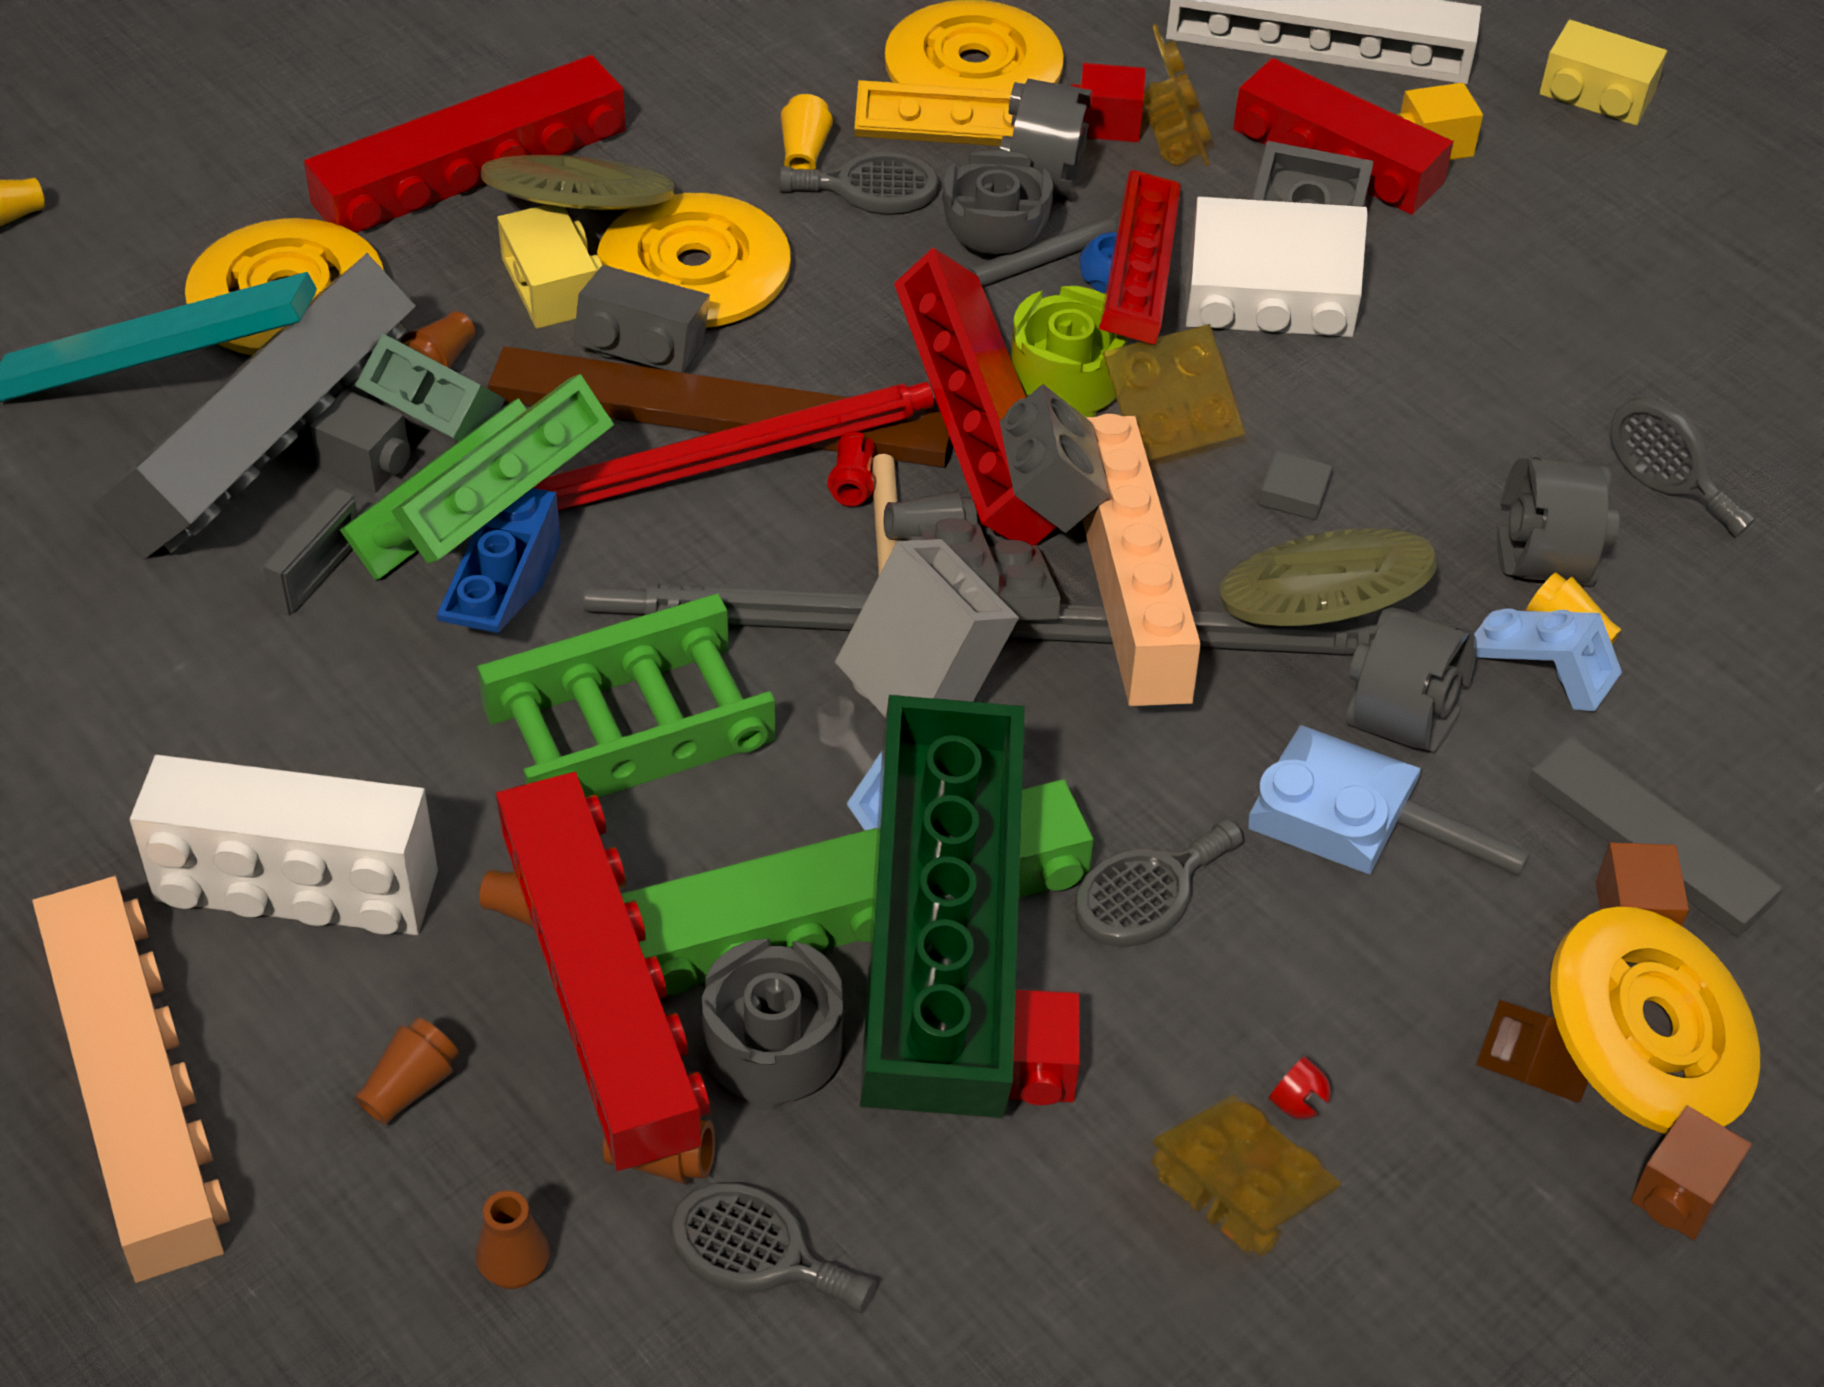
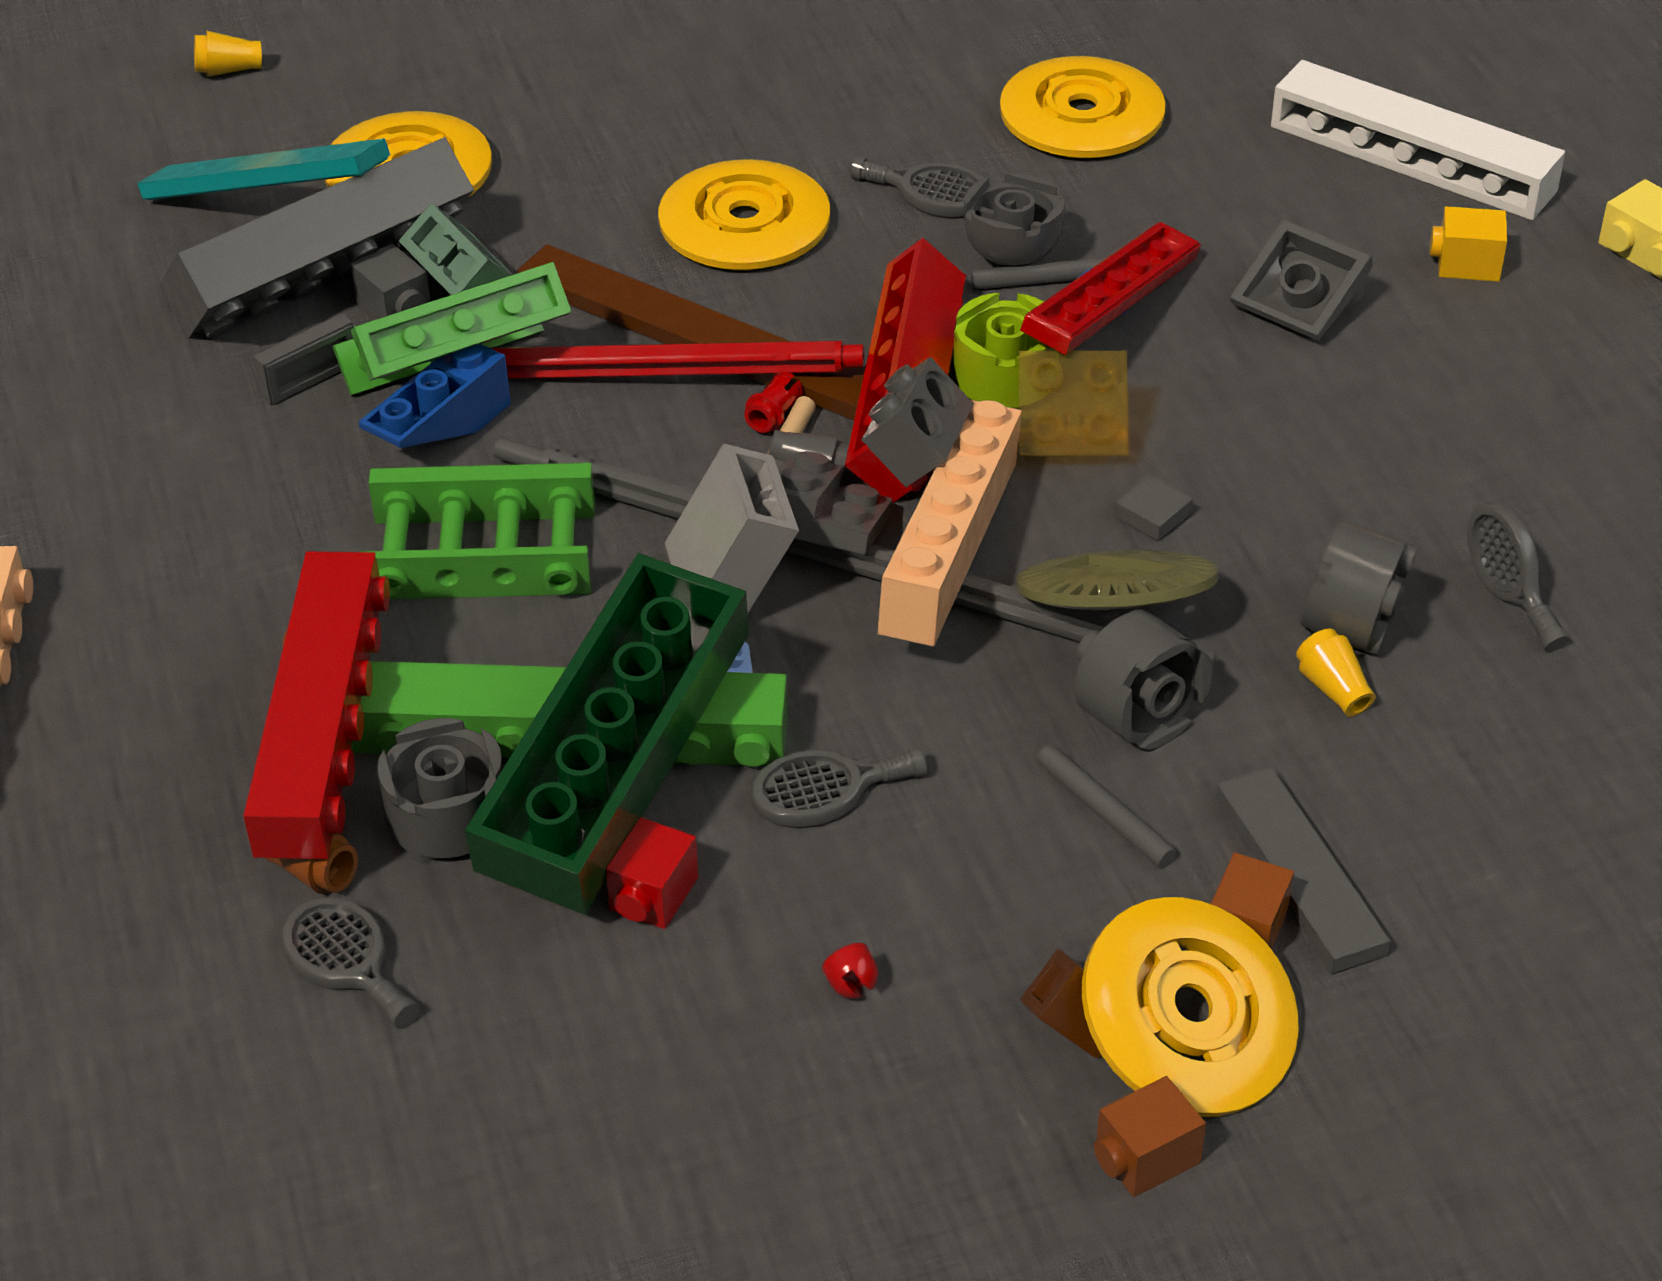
camera: 25 degrees right, 5 degrees down
(286, 844) = (152, 558): white brick -> none
(407, 1069) = (155, 747): dark orange cone -> none
(443, 338) = (499, 229): dark orange cone -> none
(446, 149) = (609, 86): red brick -> none
(510, 1243) = (154, 889): dark orange cone -> none
(546, 261) = (620, 190): light yellow brick -> none
(577, 182) = (672, 130): olive piece -> none
(641, 319) = (663, 246): dark grey brick -> none
(804, 130) = (895, 132): yellow cone -> none
(932, 113) = (1039, 148): yellow tile -> none
(1050, 129) = (1093, 174): dark grey brick -> none
(1115, 101) = (1175, 164): red brick -> none
(1171, 108) = (1233, 176): clear yellow hinge -> none
(1247, 1167) = (762, 1016): clear yellow hinge -> none
(1275, 266) = (1230, 323): white slope -> none
(1309, 113) = (1409, 260): red brick -> none
(1333, 798) = (1023, 758): light blue slope -> none
(1571, 639) = (1311, 693): light blue bracket -> none

